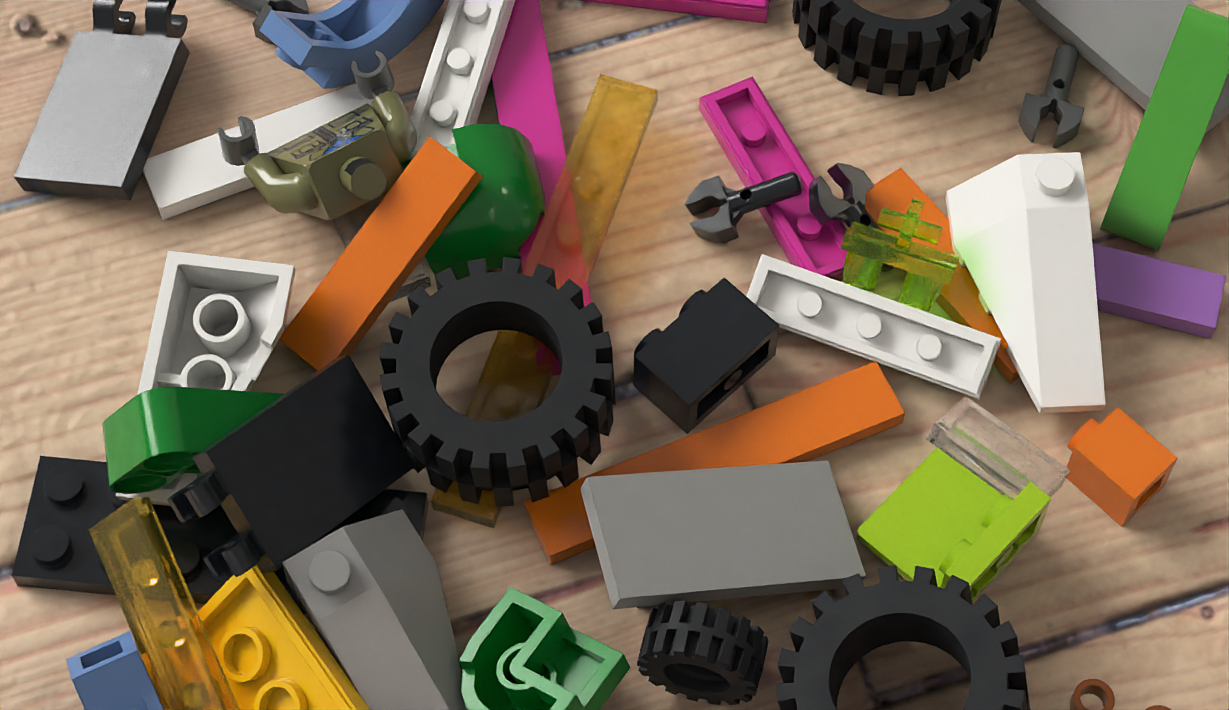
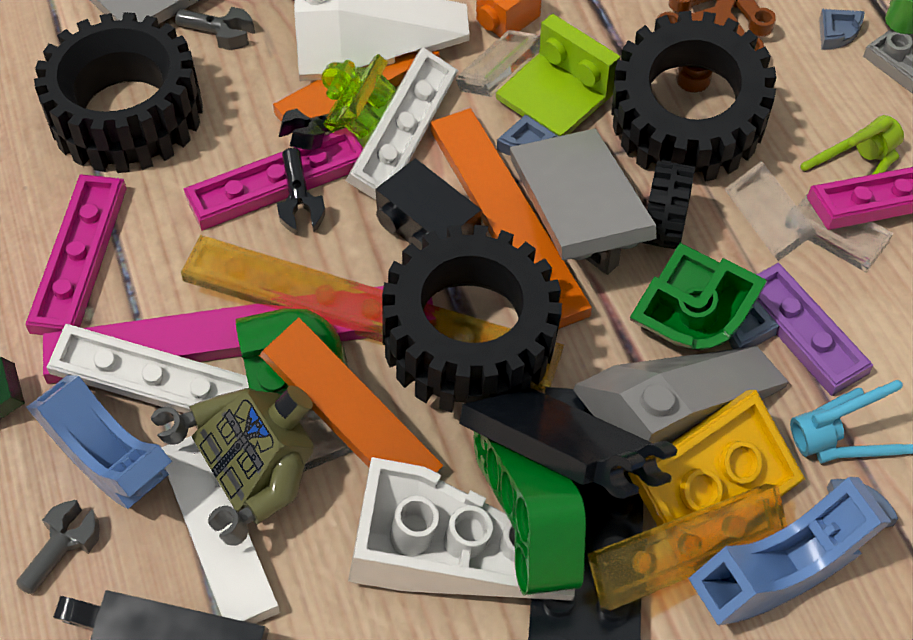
camera: 90 degrees left, 5 degrees down
(860, 489) = (523, 132): none -> sand blue tile

